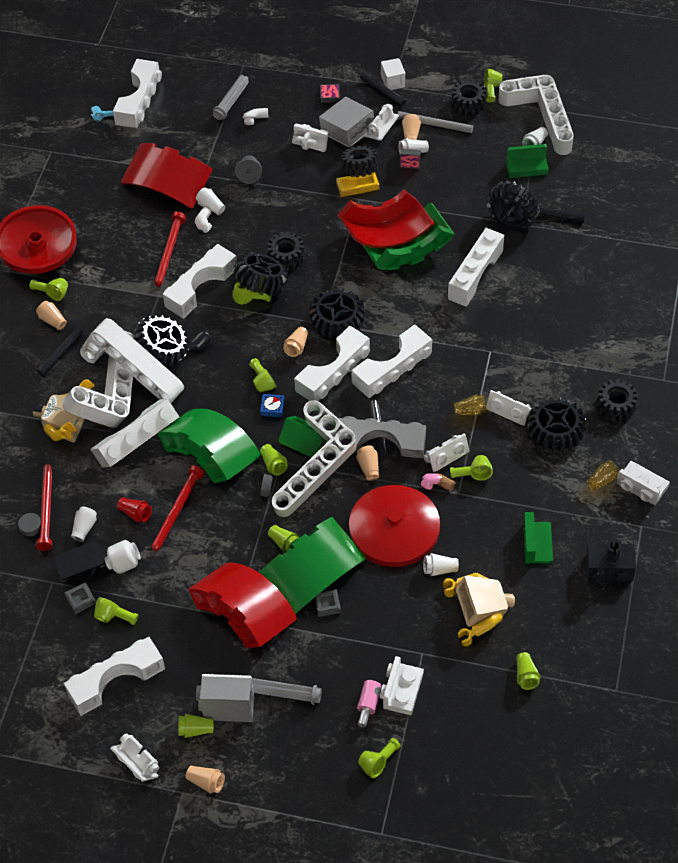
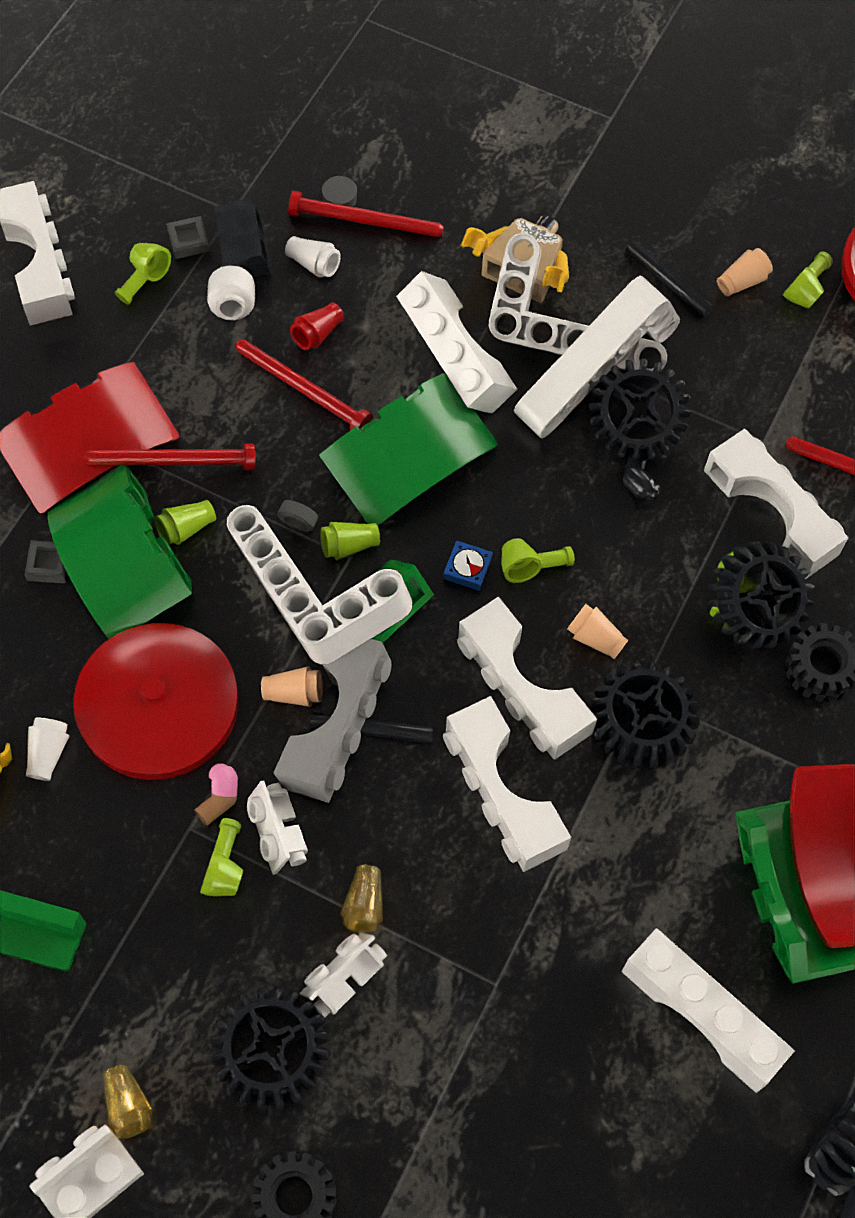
camera: 100 degrees right, 10 degrees up
(234, 521) = (244, 457): none -> red bar

